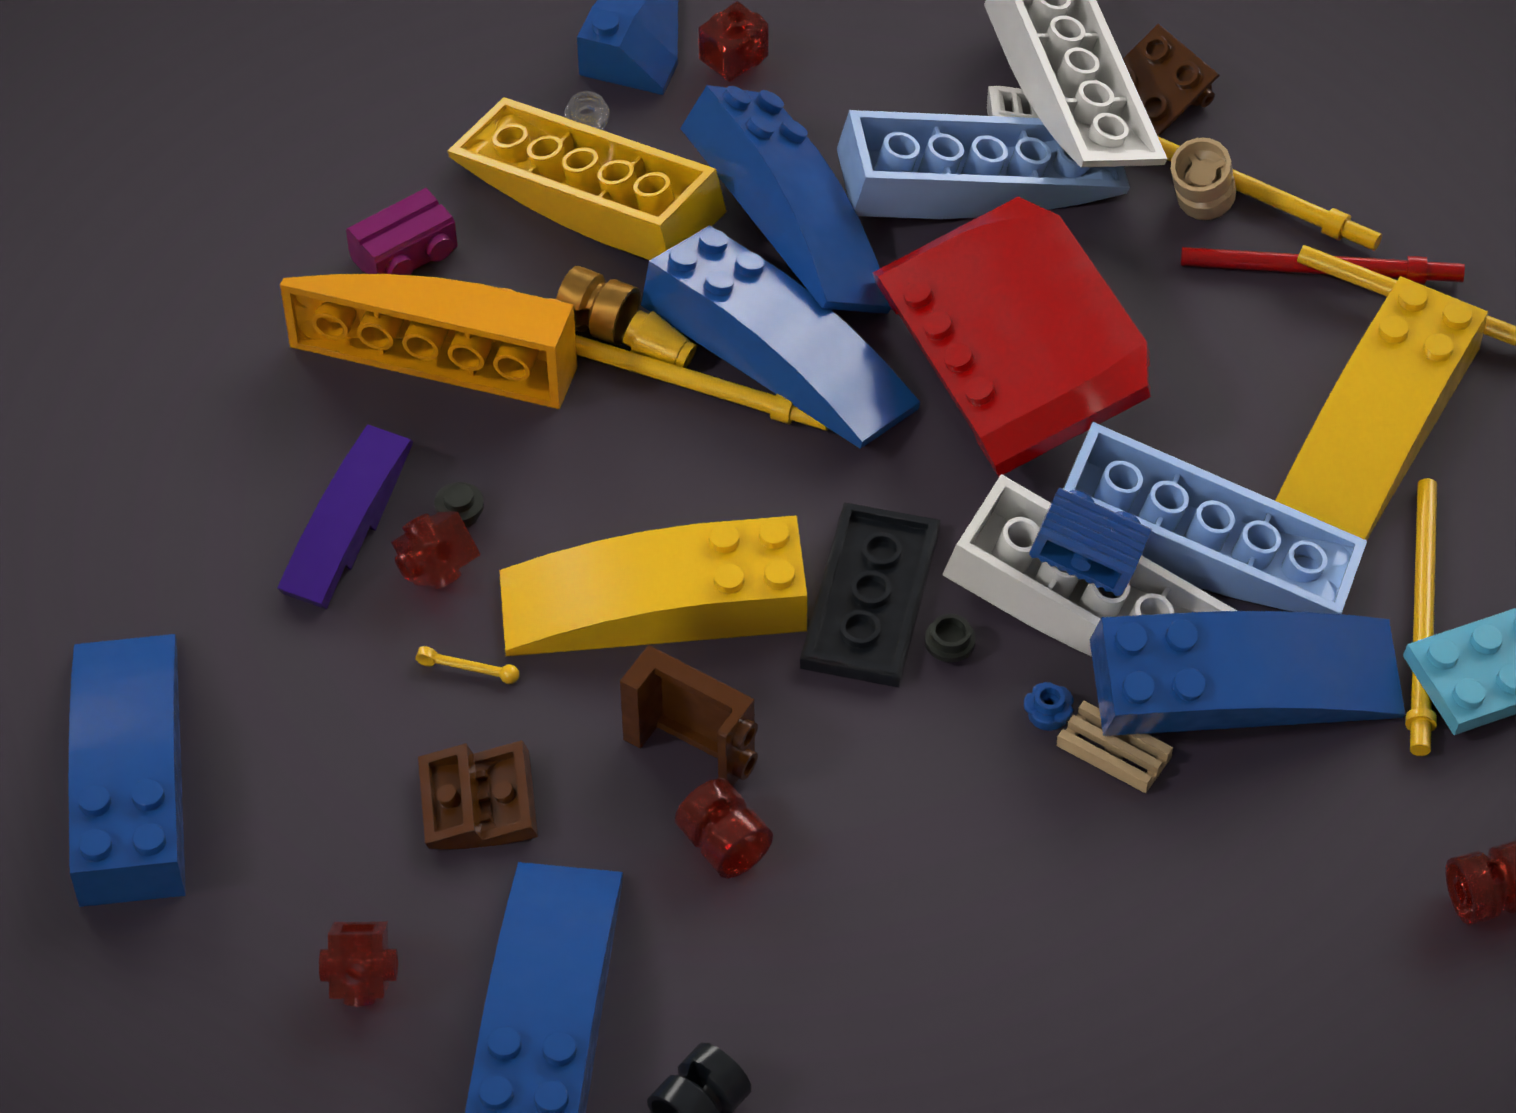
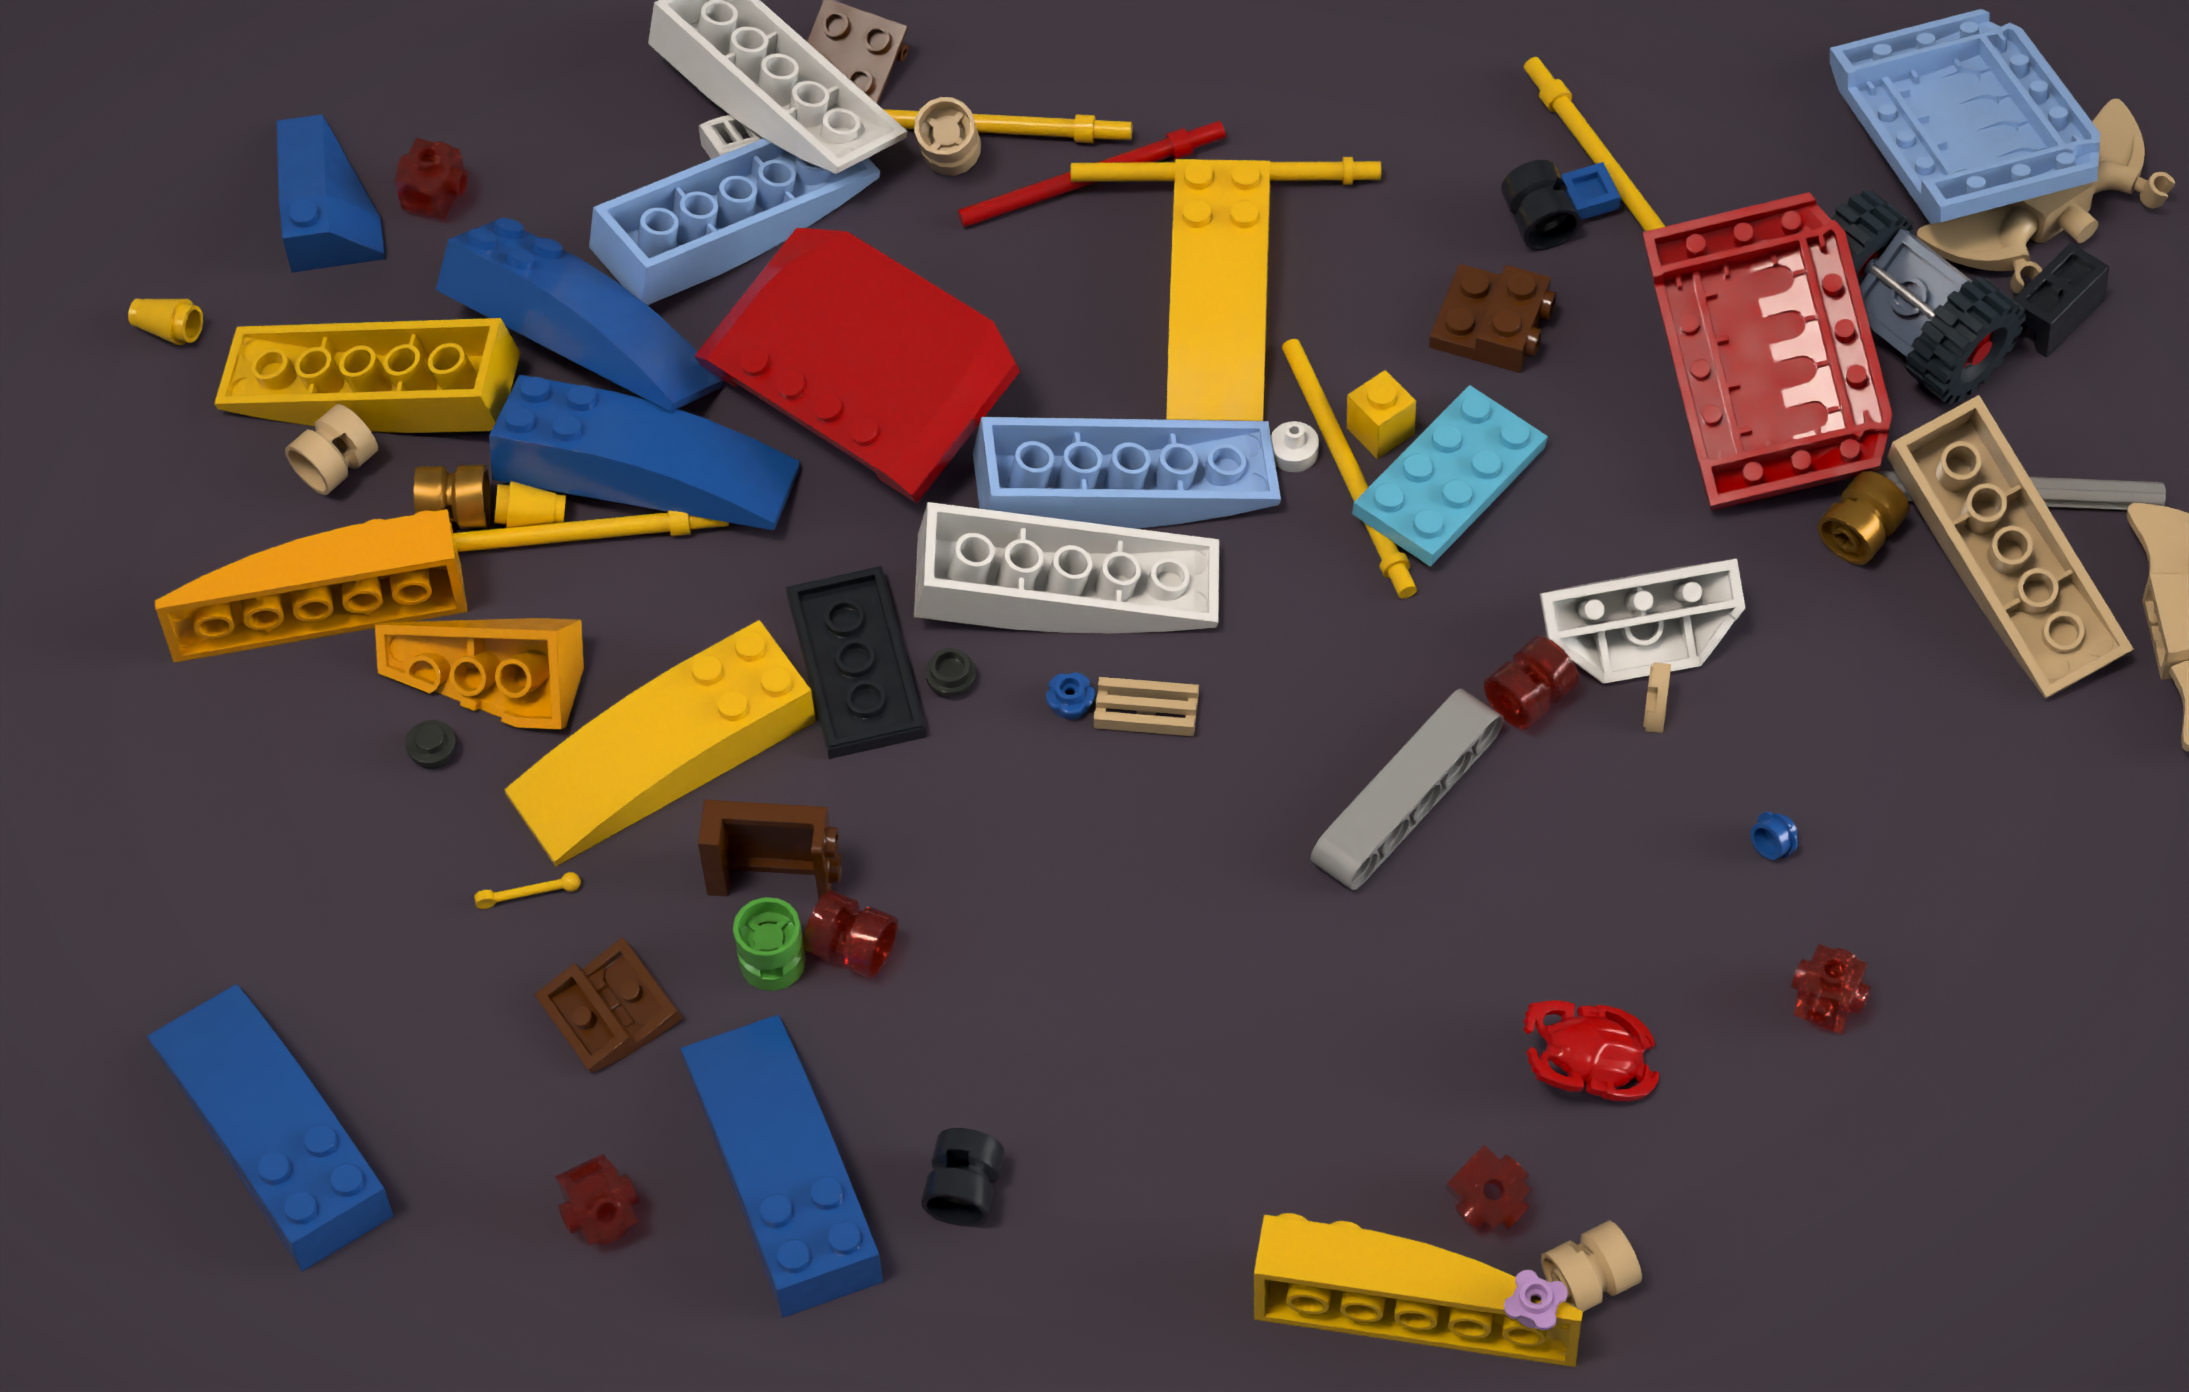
camera: 25 degrees left, 5 degrees up
(344, 516) = (334, 802): dark purple slope -> none
(403, 236) = (224, 510): magenta brick -> none
(434, 549) = (439, 796): clear red brick -> none
(452, 69) = (169, 319): none -> yellow cone
(504, 230) = (326, 454): none -> tan wheel
(557, 465) = (502, 666): none -> light orange wedge
(588, 109) = (325, 299): clear plate -> none
(645, 803) = (769, 943): none -> bright green wheel
(1090, 541) = (1040, 529): blue brick -> none
(1242, 670) = (1225, 590): blue slope -> none
(1320, 928) = (1406, 789): none -> light grey beam
(1381, 574) = (1295, 446): none -> white tile
(1478, 578) = (1381, 414): none -> yellow brick

